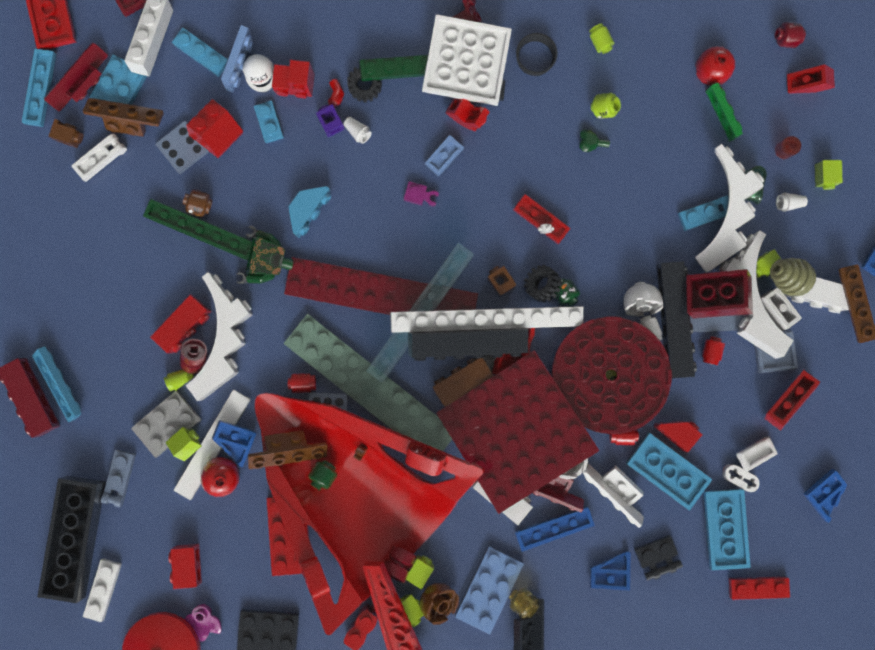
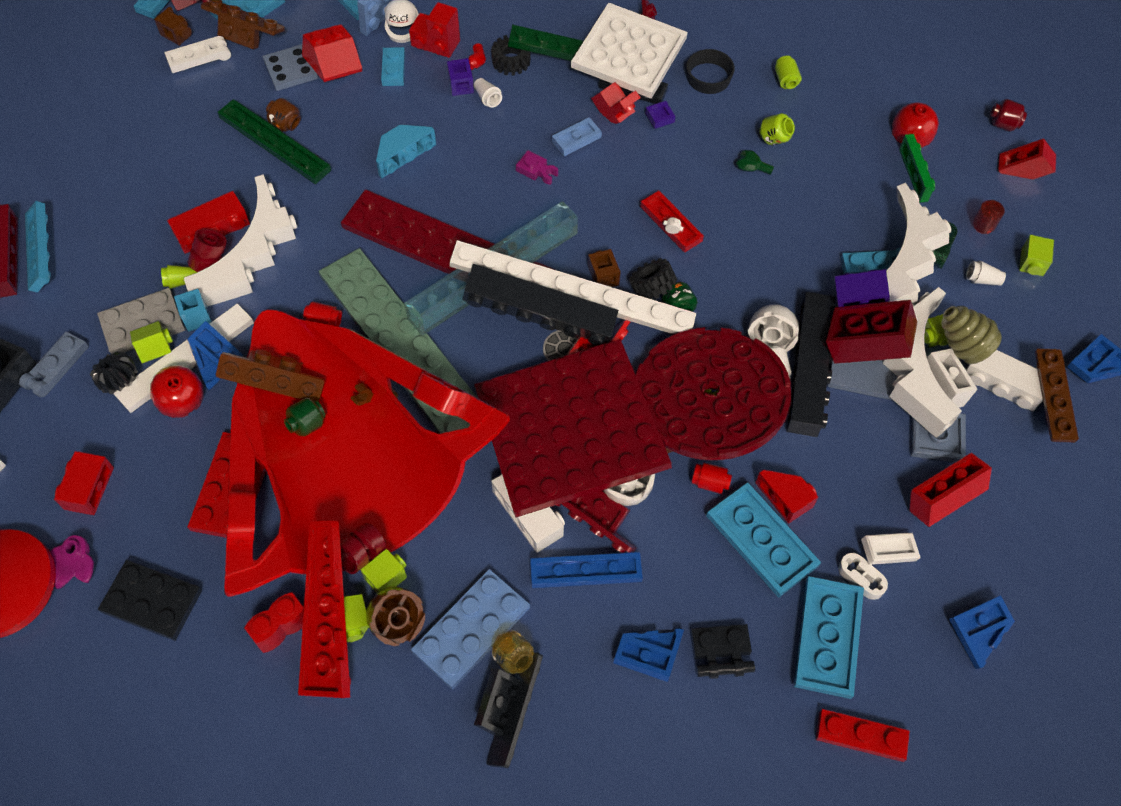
camera: 20 degrees right, 25 degrees down
(168, 477) = (114, 372): none -> black gear
(204, 409) = (192, 309): none -> dark azure brick
(264, 258) = (332, 181): dark green torso -> none
(462, 380) = (518, 357): reddish brown brick -> none
(506, 113) = (660, 114): none -> dark purple plate
(618, 490) = (689, 542): white bracket -> none
(705, 257) = (862, 288): none -> dark purple brick
(713, 350) = (854, 410): red brick -> none

